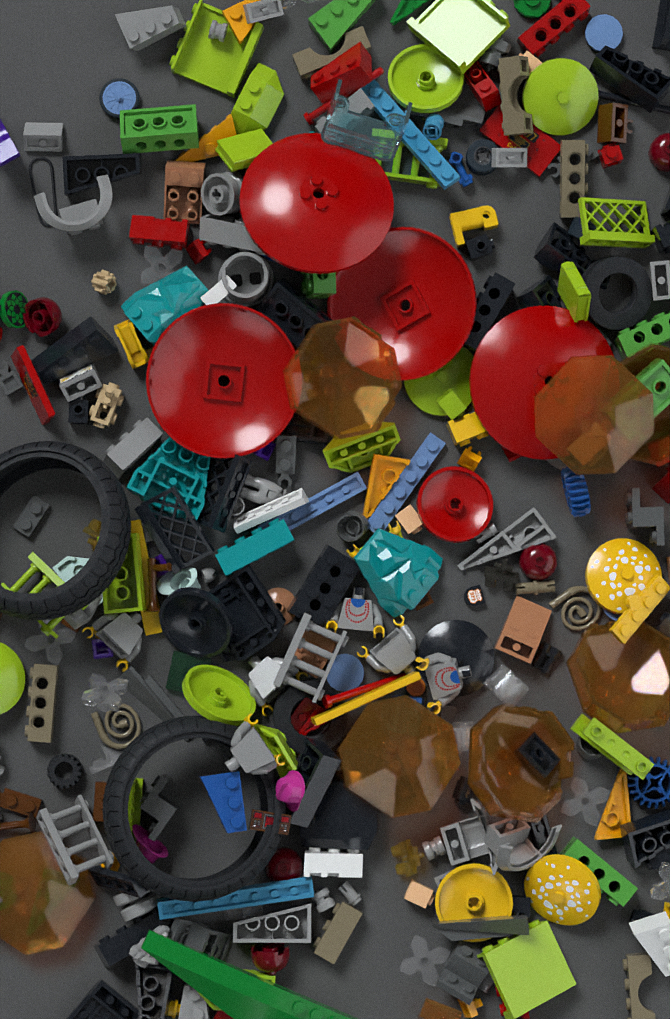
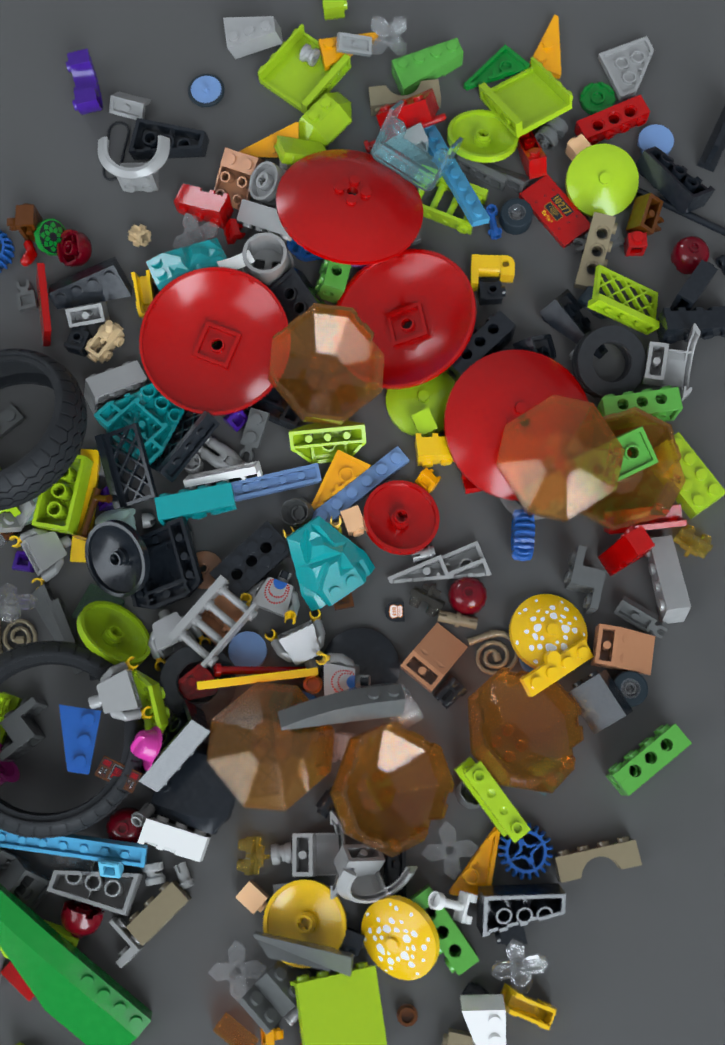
camera: 25 degrees right, 10 degrees down
(159, 129) = (231, 113): bright green brick -> none
(285, 906) = (110, 868): none -> medium azure slope
(296, 854) = (138, 818): none -> light grey pin
(320, 975) = (127, 953): none -> light grey bracket
(433, 126) = (481, 172): dark azure wheel -> none
(460, 701) = (346, 706): none -> dark grey wedge
(509, 157) = (540, 218): light grey plate -> none
(512, 73) = (563, 146): dark tan arch -> none
(537, 756) = (412, 788): black slope -> none
(574, 291) = (570, 348): lime piece -> none
(586, 954) = (407, 1015): none -> reddish brown plate
(588, 848) = (438, 901): none -> white bar

